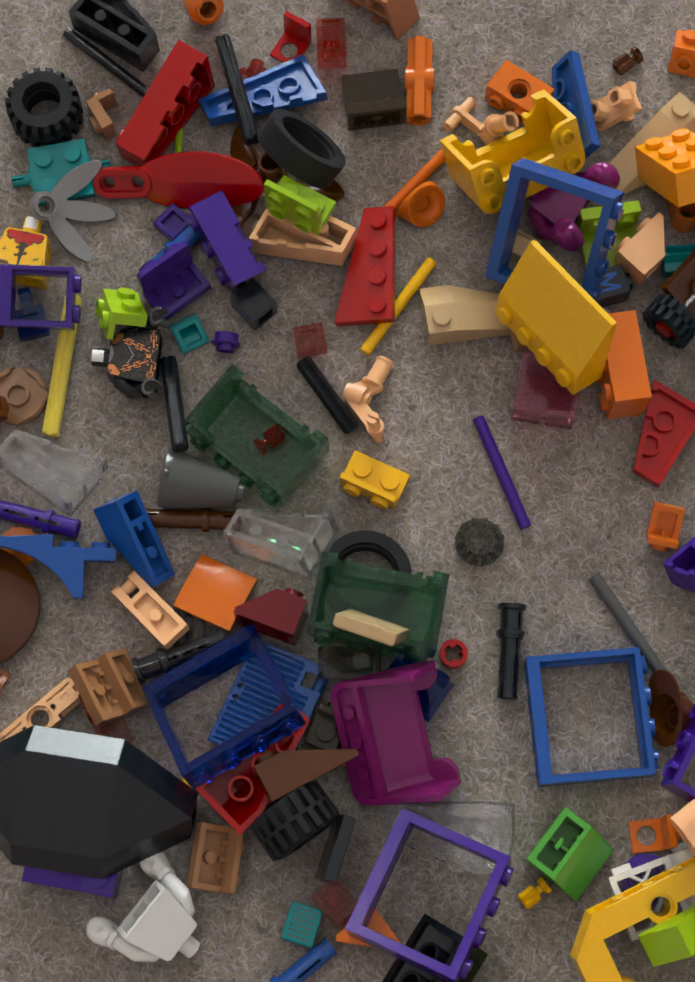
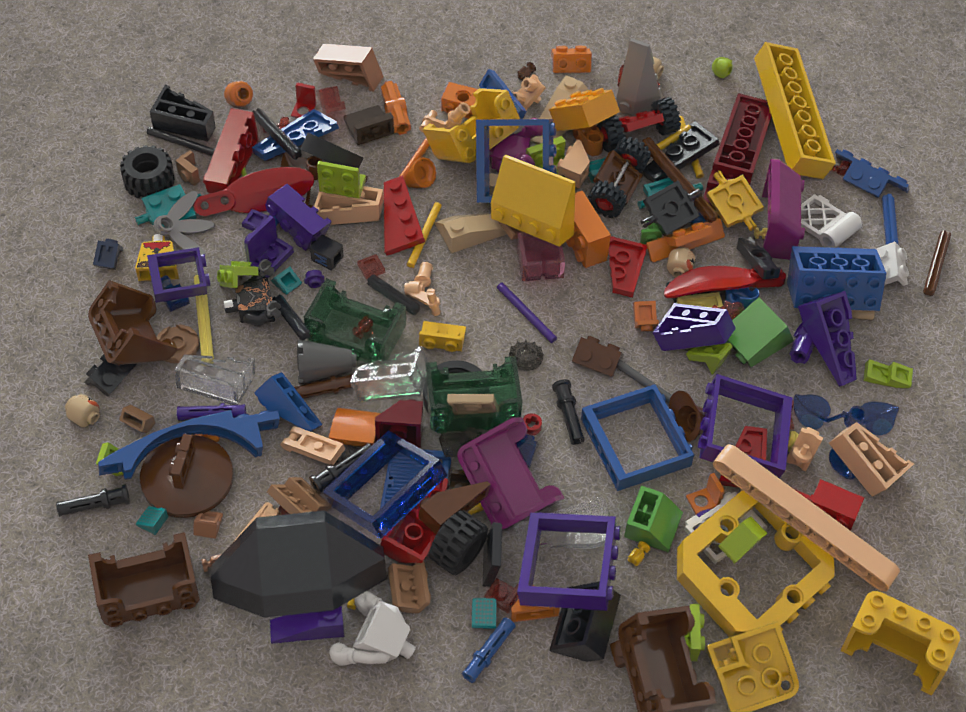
camera: 20 degrees left, 20 degrees down
(577, 571) = (597, 356): none -> reddish brown bracket

